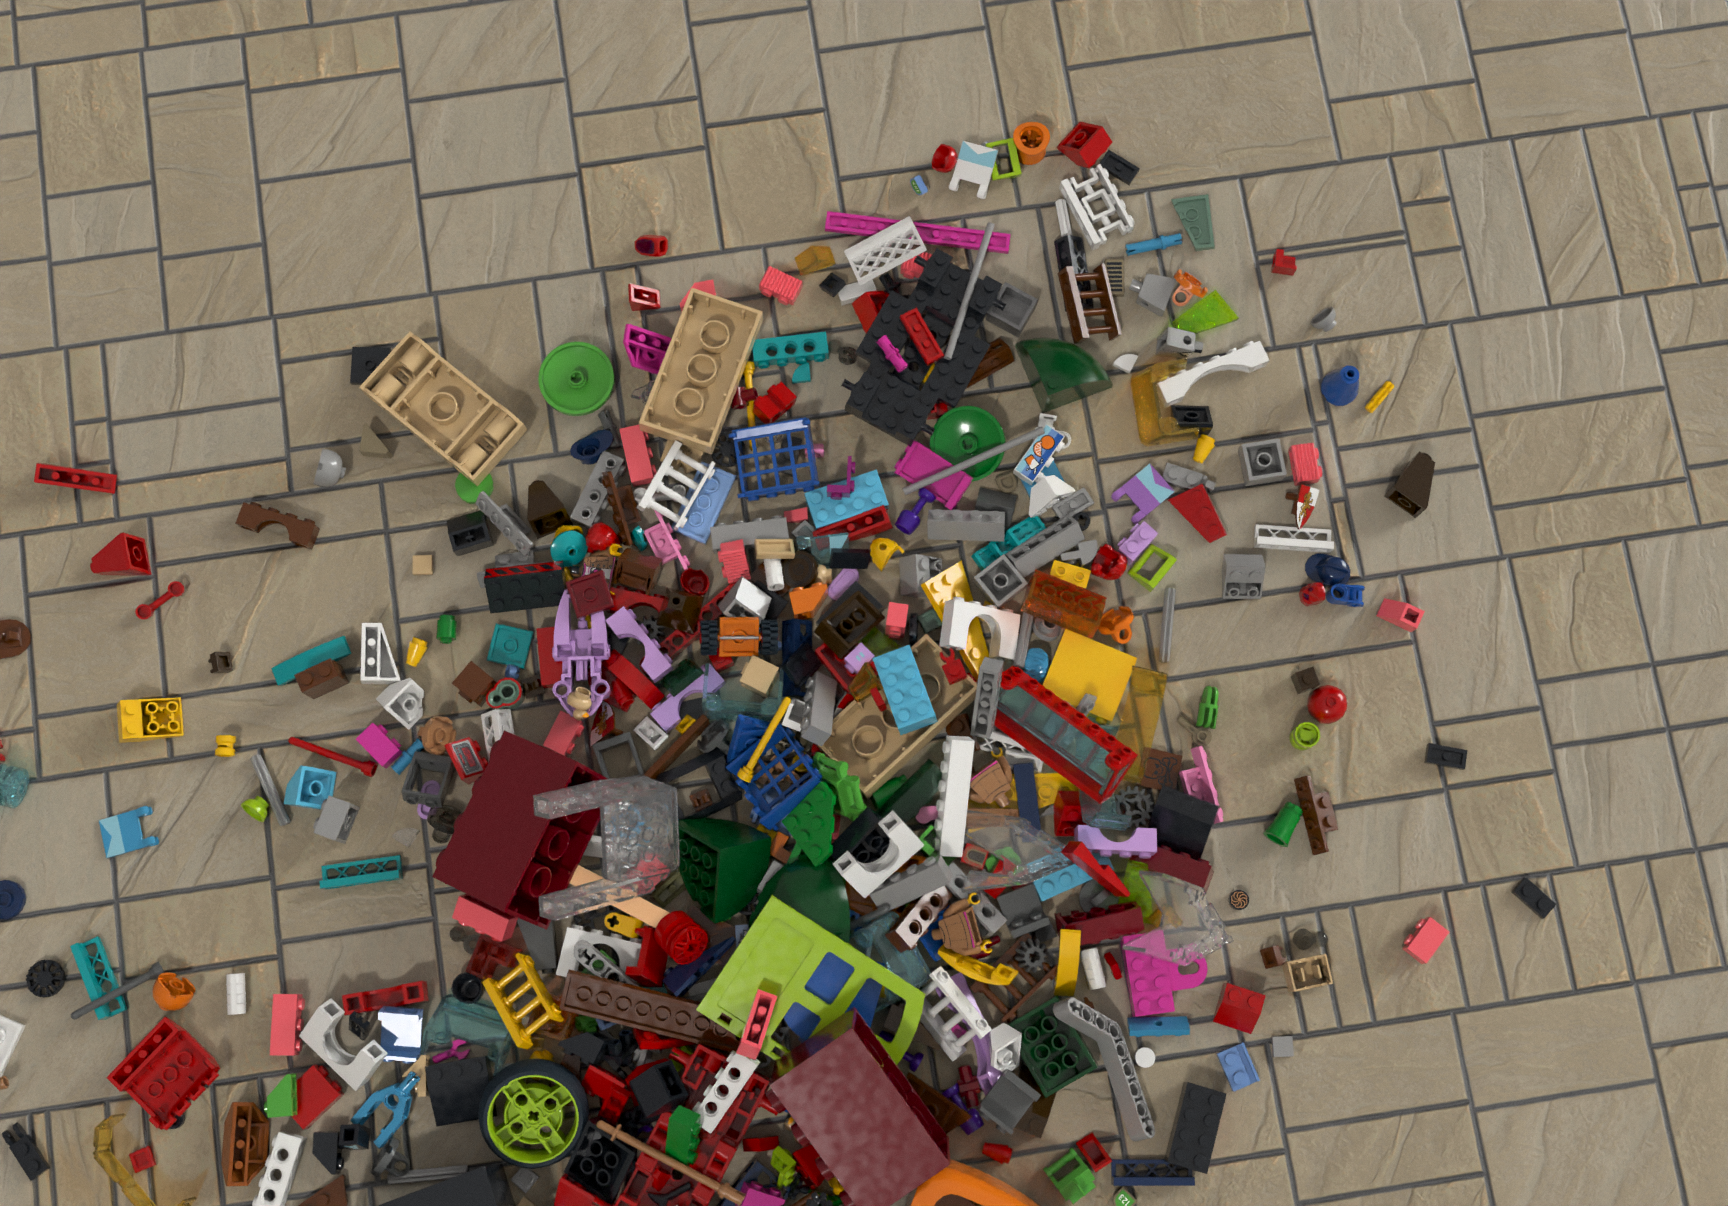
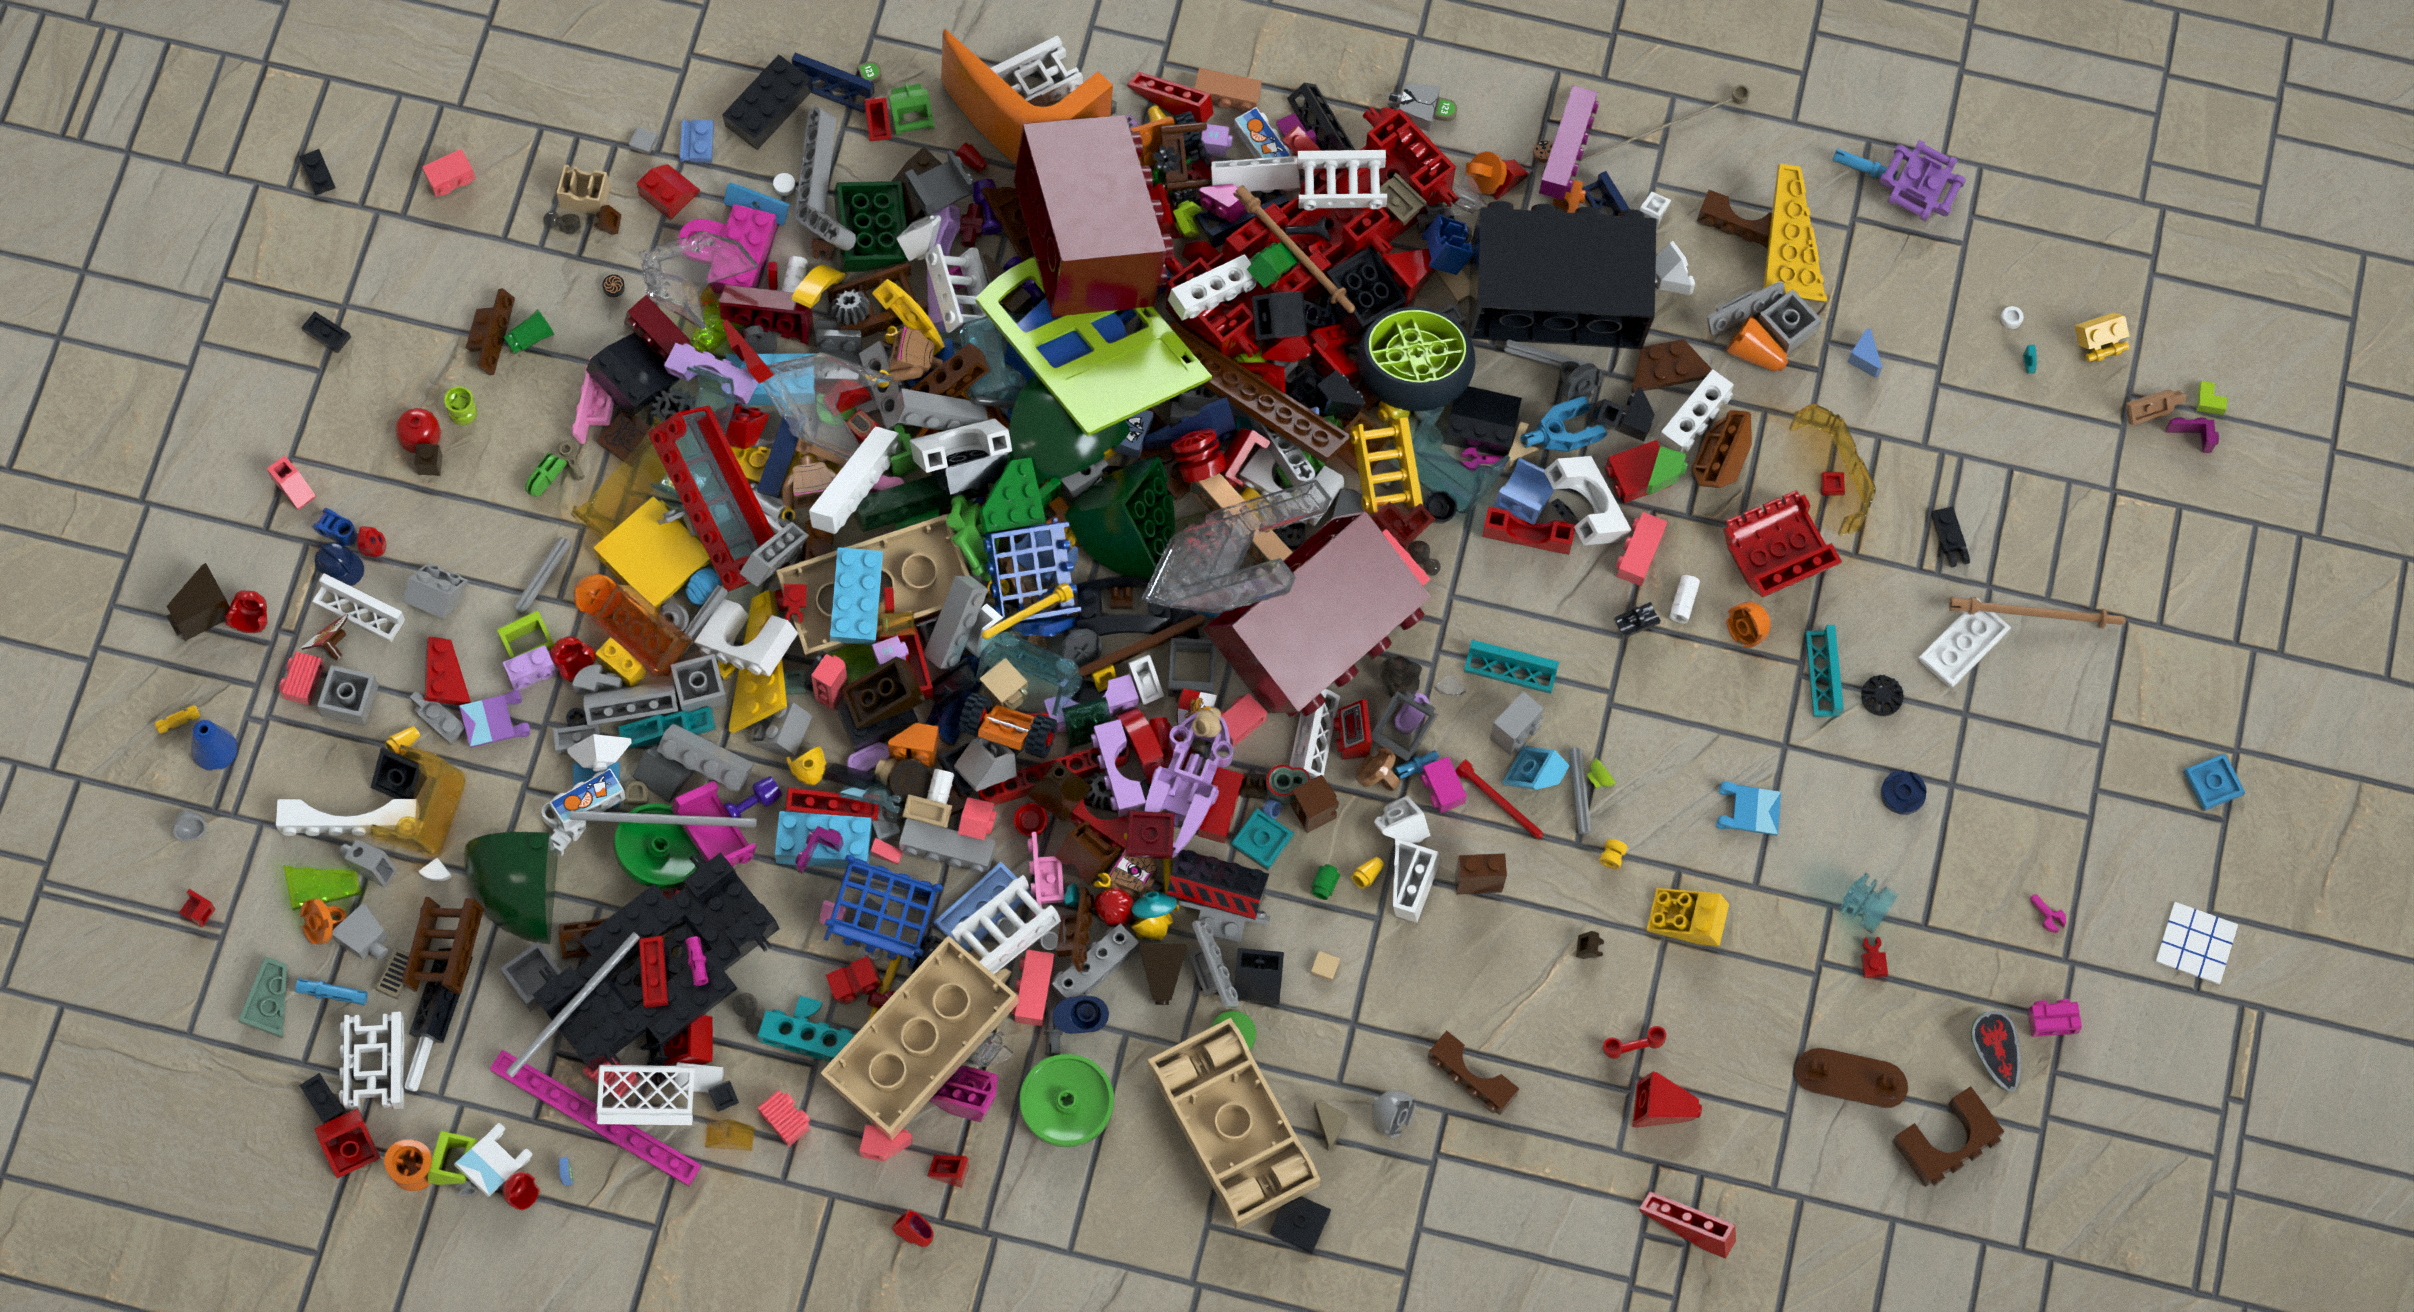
camera: 160 degrees left, 10 degrees down
(153, 972) = (1763, 653): dark grey piece -> none
(268, 955) = (1637, 620): none -> black hips
(334, 649) = (1487, 906): teal slope -> none
(756, 1024) = (1155, 325): coral brick -> none
(1373, 496) = (247, 612): none -> red hair

